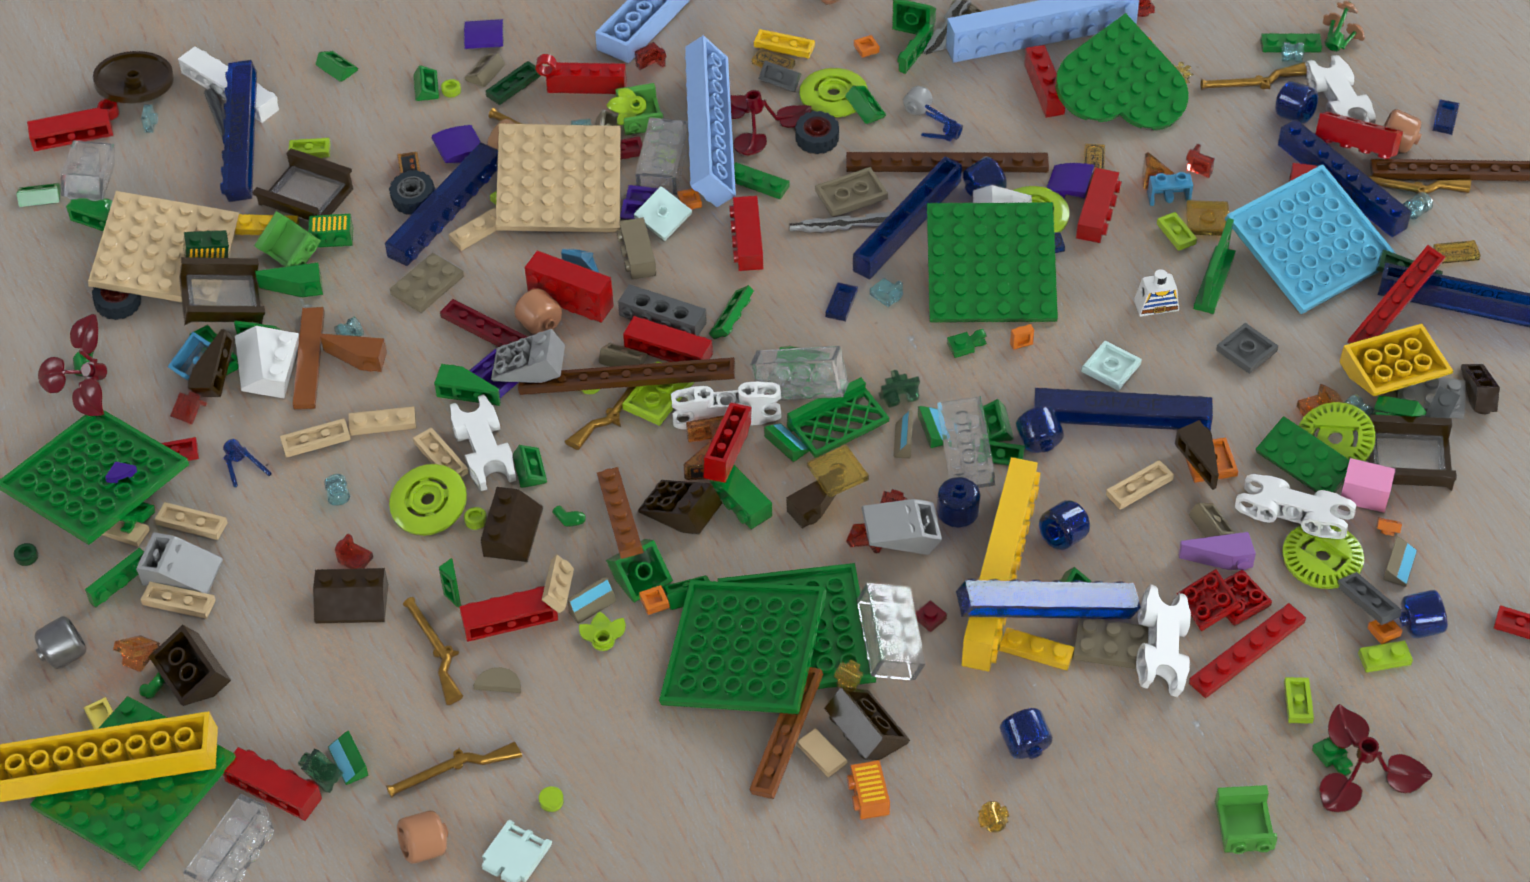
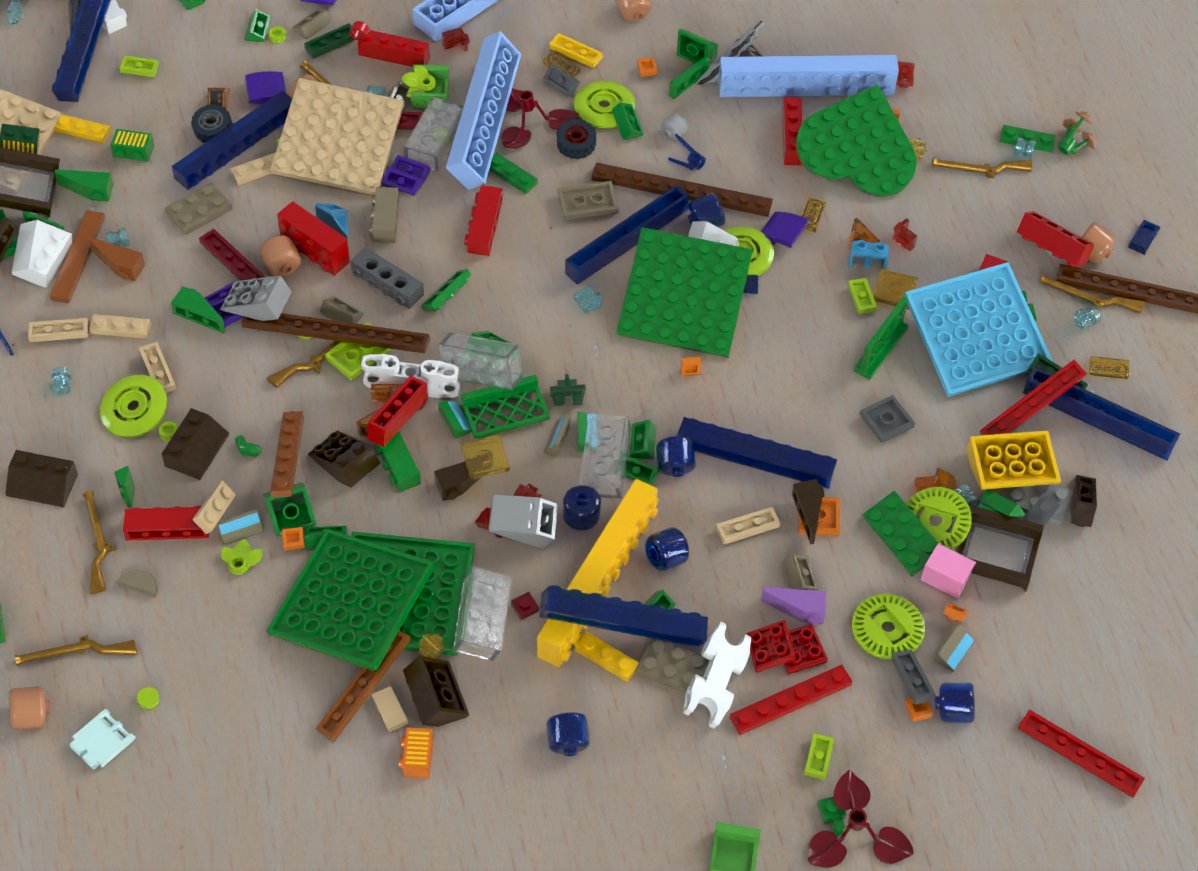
camera: 10 degrees right, 5 degrees up
(287, 241) = (91, 147): bright green panel -> none
(308, 186) = (127, 102): piece -> none
(351, 554) = (54, 441): clear red bracket -> none
(486, 454) = (196, 376): white piece -> none
(529, 466) = (229, 393): green slope -> none
(663, 213) = (417, 187): light aqua plate -> none
(666, 342) = (381, 306): red brick -> none
(690, 198) = (444, 179): orange plate -> none
(840, 222) = (567, 226): light grey sword -> none
(841, 301) = (546, 300): clear blue tile -> none
(964, 344) = (638, 361): green plate -> none
(993, 816) = (515, 802): clear yellow gear -> none
(1098, 205) = (800, 257): red brick -> none
(1111, 365) = (761, 409): light aqua plate -> none
(1157, 294) = (822, 352): white torso -> none
(1296, 102) = (1010, 196): clear blue head -> none
(1311, 511) = (889, 584): white piece -> none
(1336, 85) = (1053, 186): white piece -> none
(1367, 194) = (1030, 277): clear blue brick -> none
(1385, 656) = (911, 733): lime plate -> none

